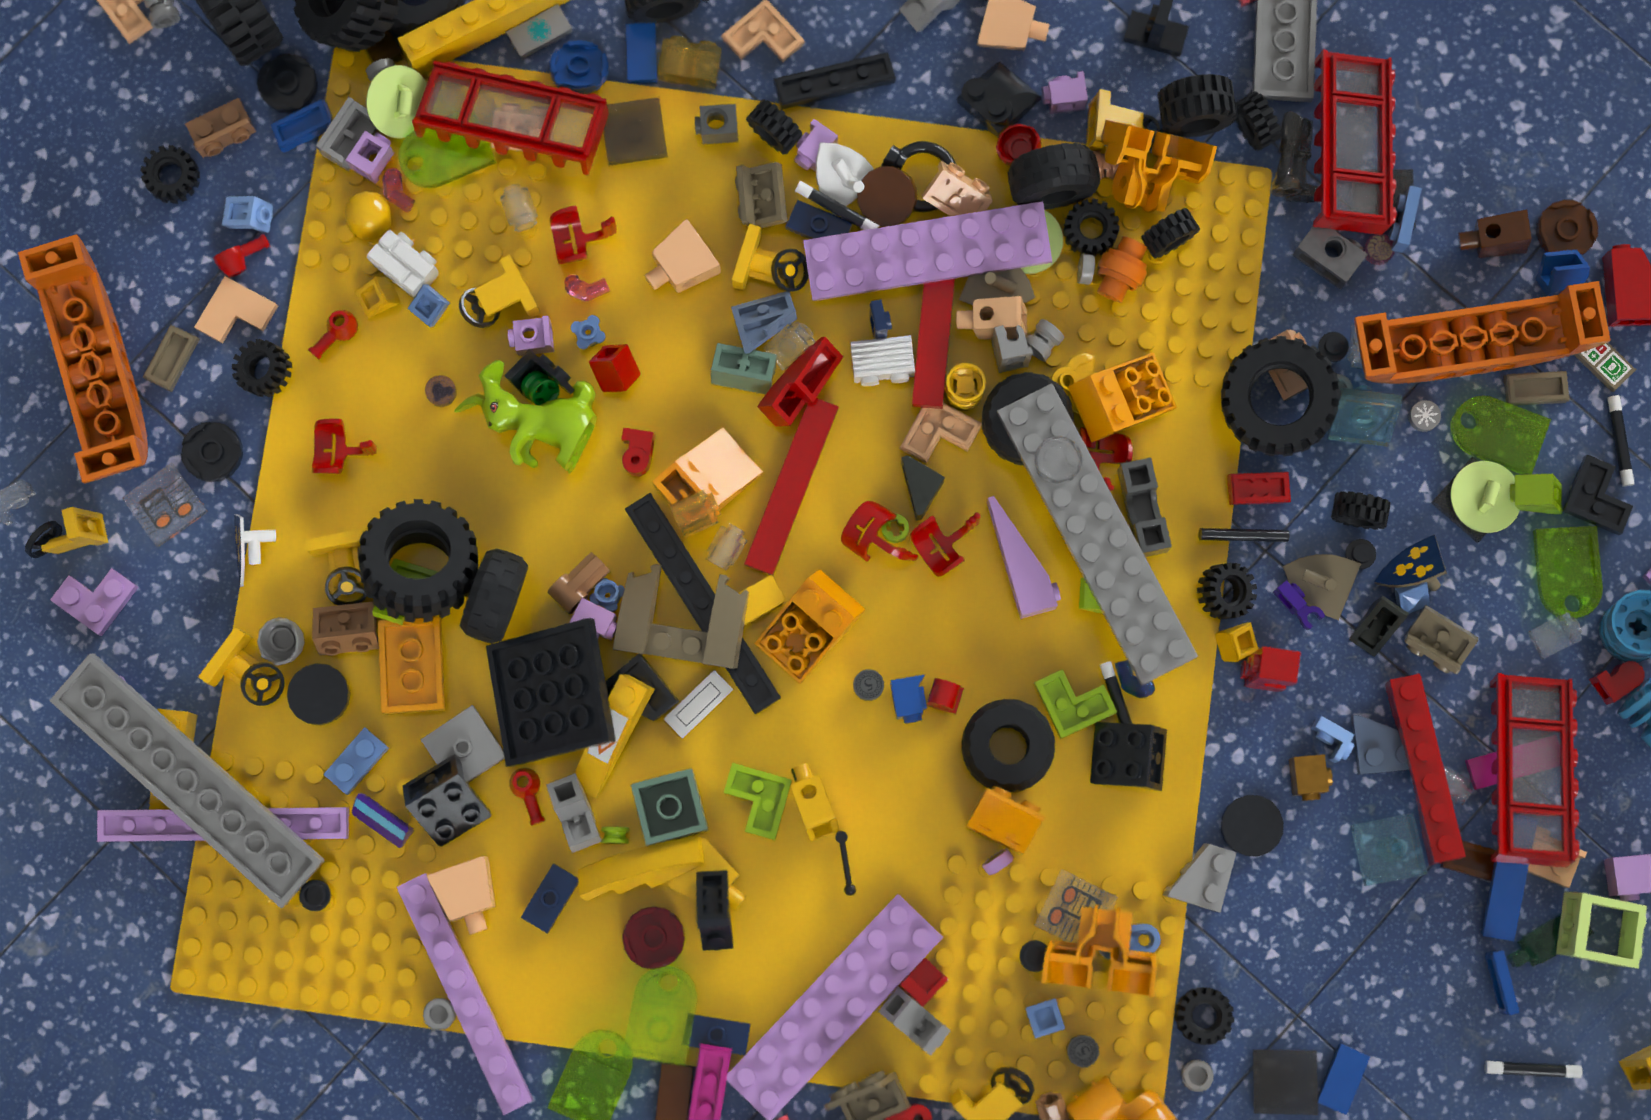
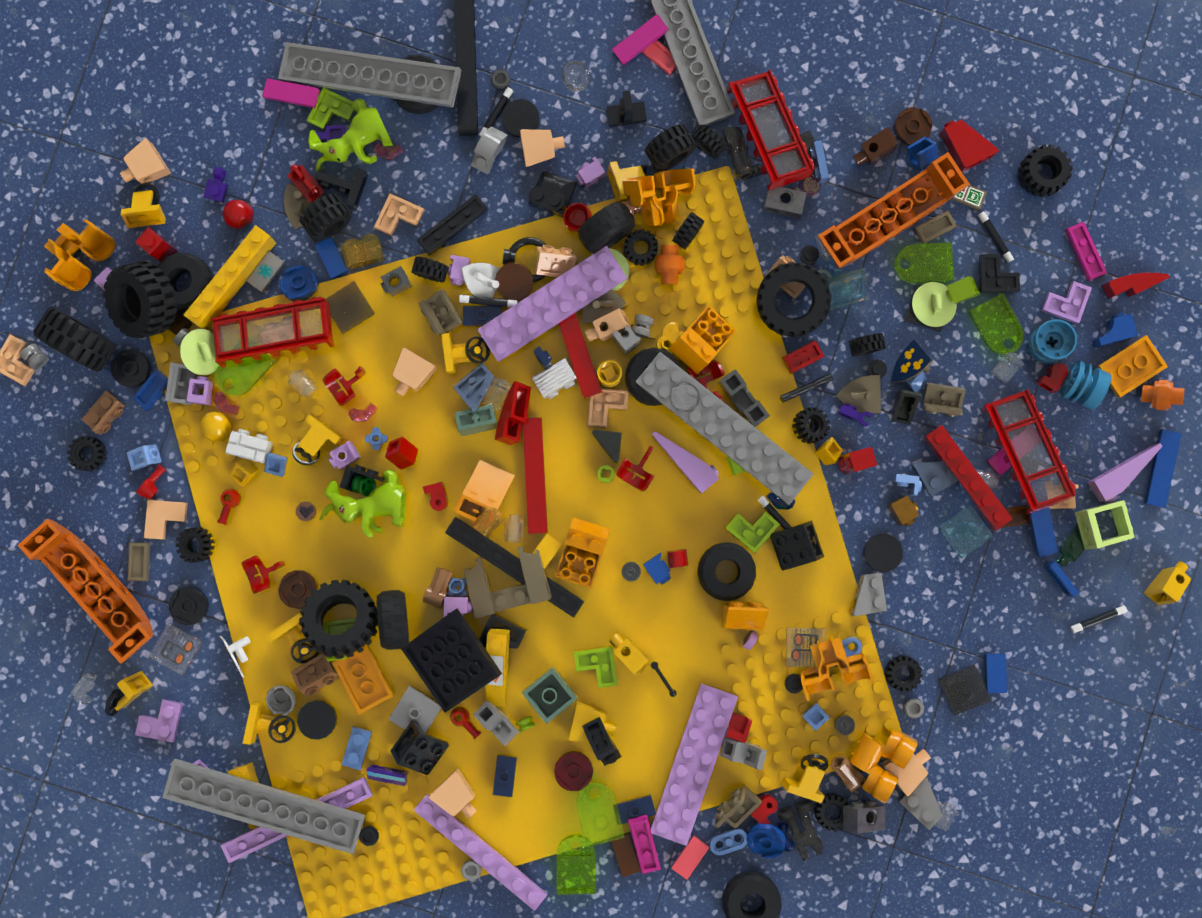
camera: 25 degrees left, 5 degrees up
(374, 491) = (296, 587): none -> reddish brown tile
(641, 865) = (548, 735): yellow slope -> none
(698, 704) = (538, 626): white sticker -> none
(861, 517) = (584, 477): red helmet -> none
(1086, 269) = (648, 273): light grey tile -> none
(1424, 416) = (878, 272): light grey tile -> none

